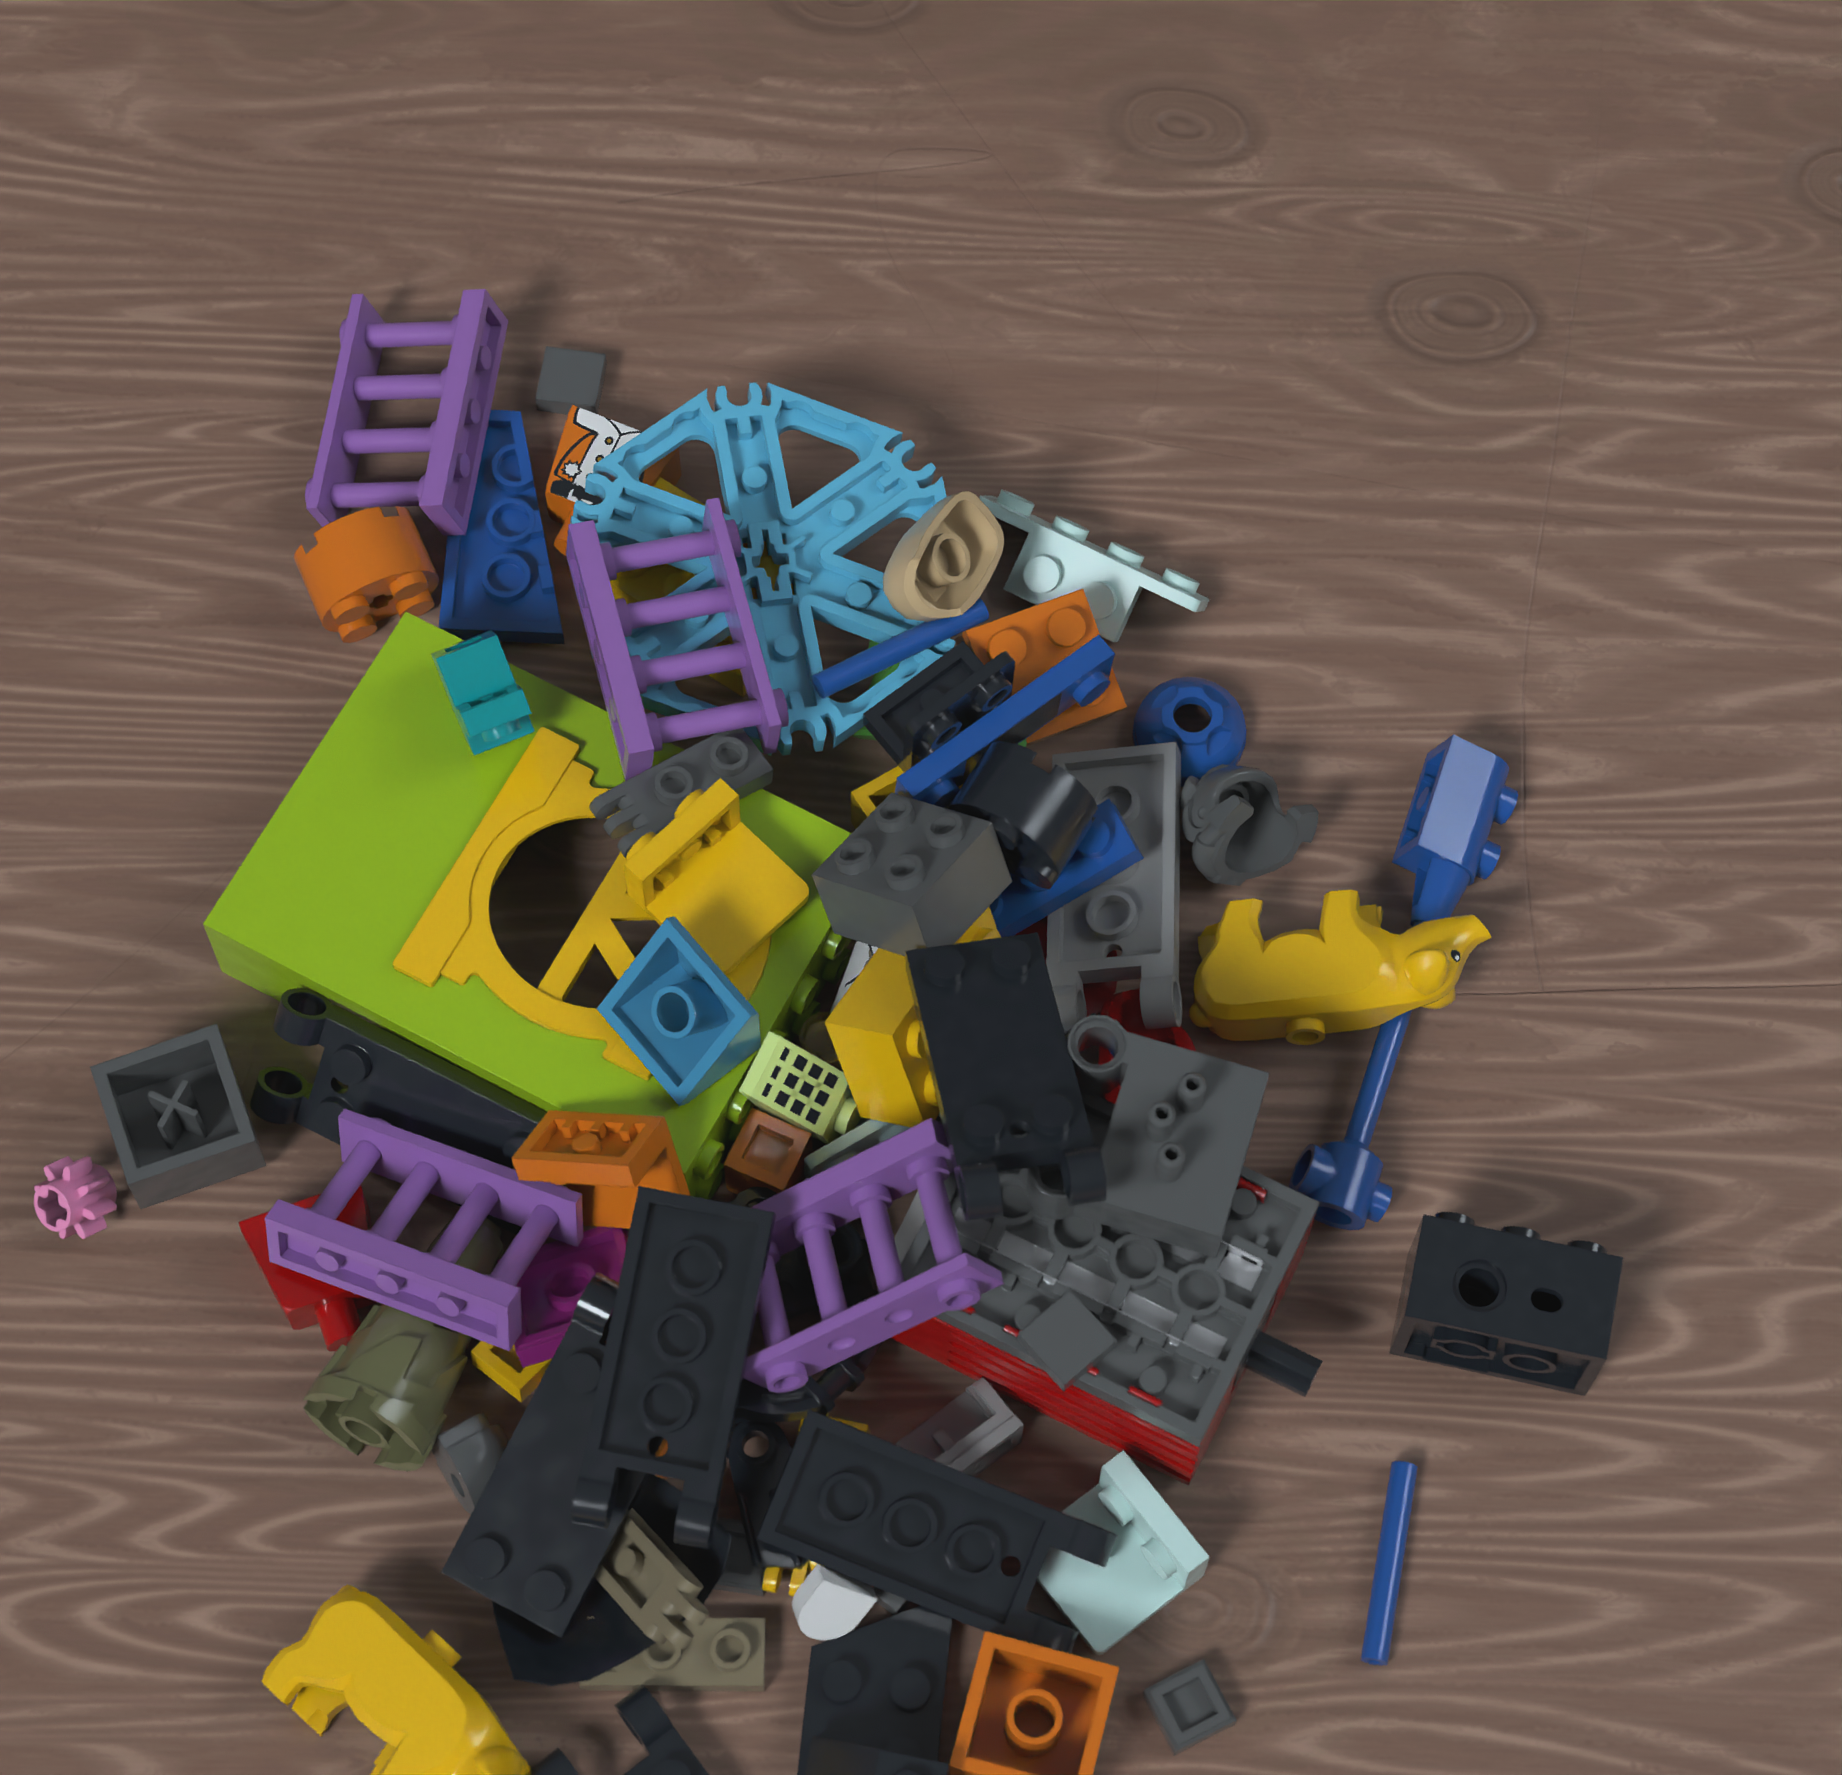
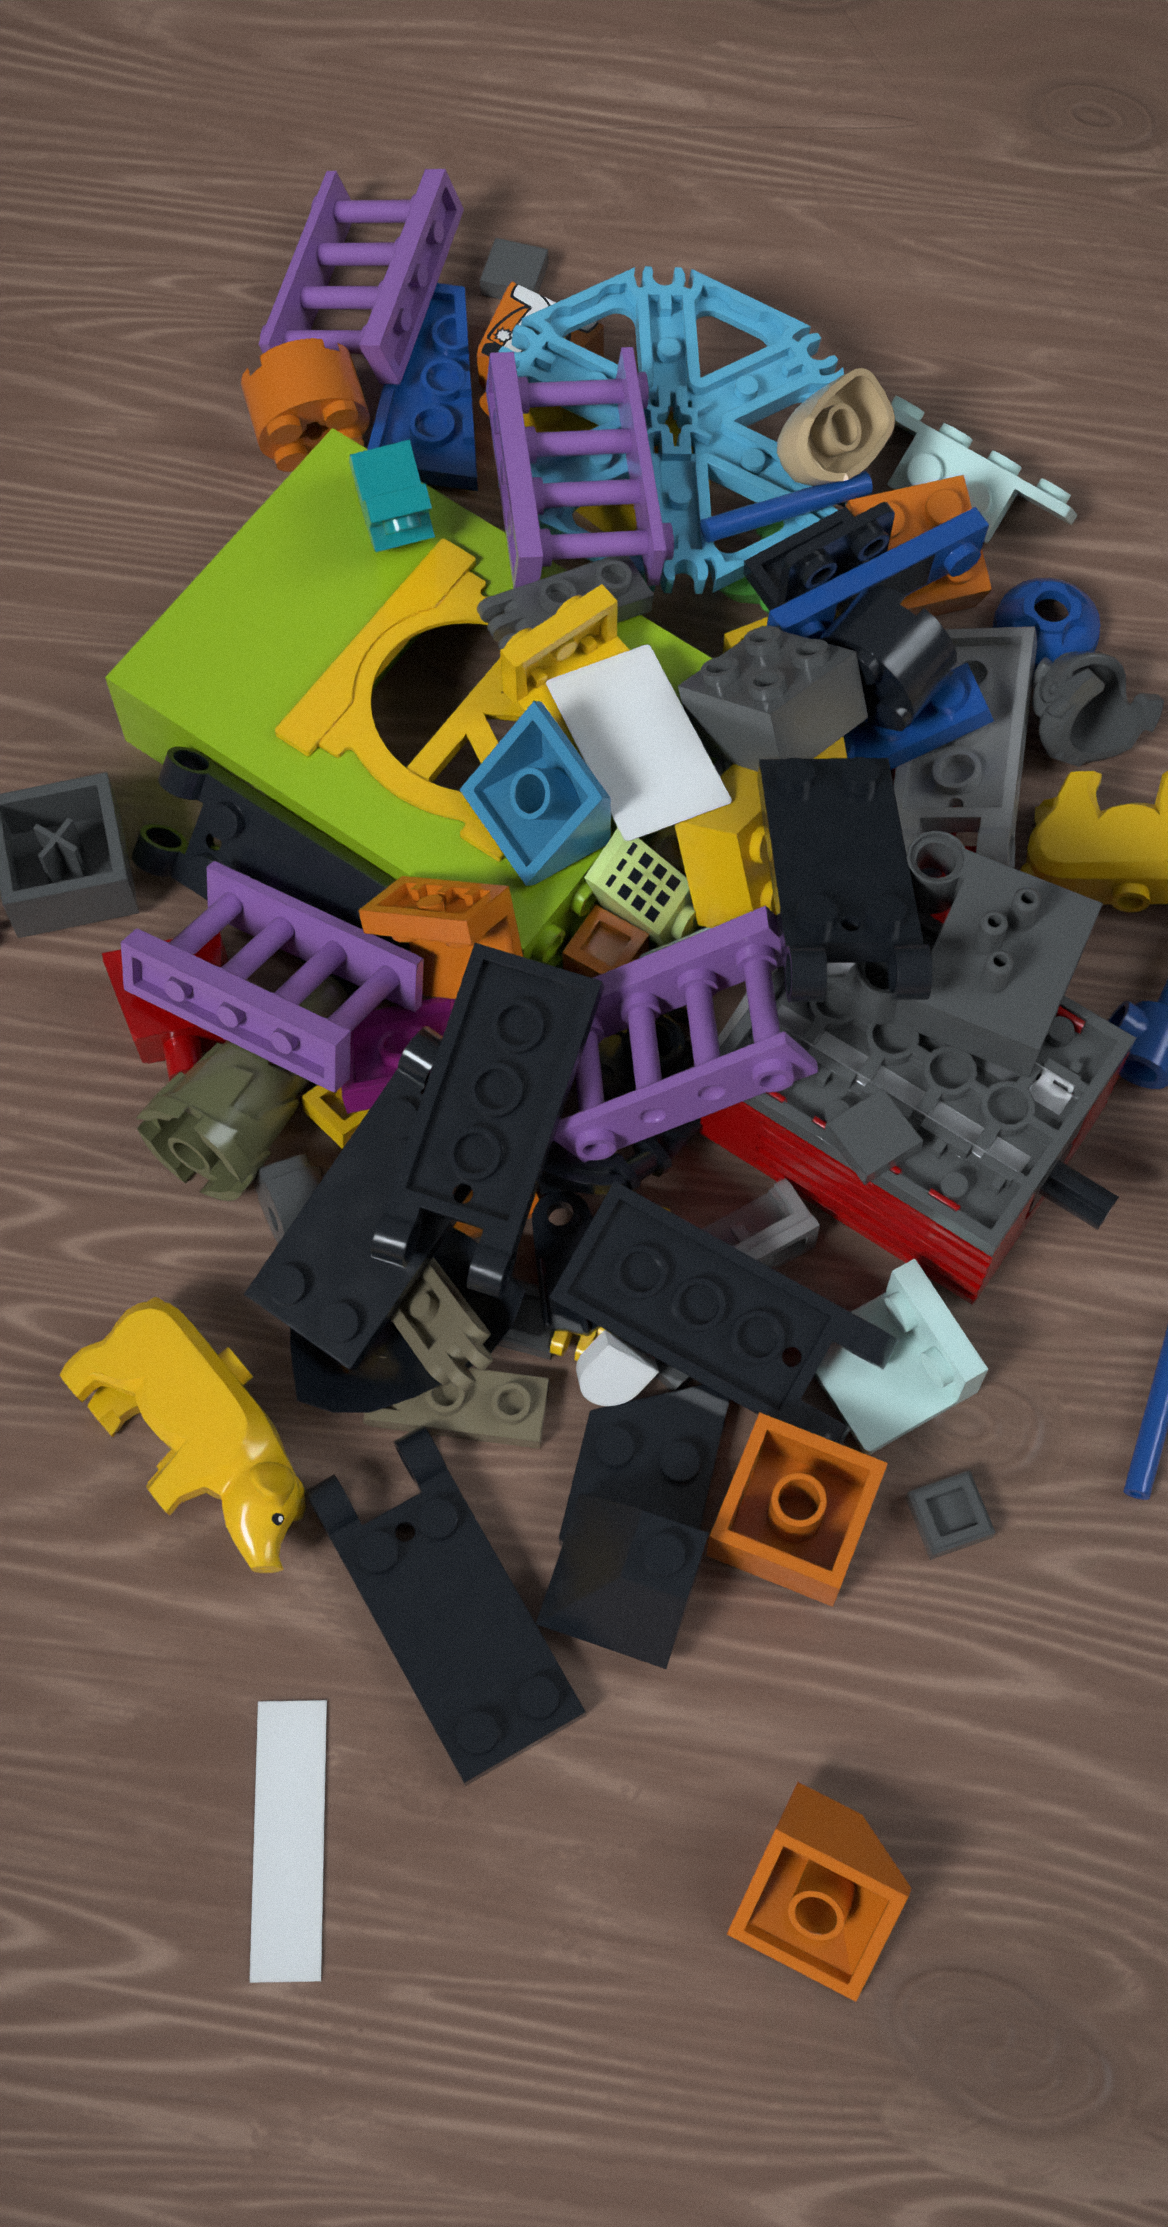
camera: 10 degrees right, 0 degrees up
(777, 939) = (638, 742): none -> white sticker

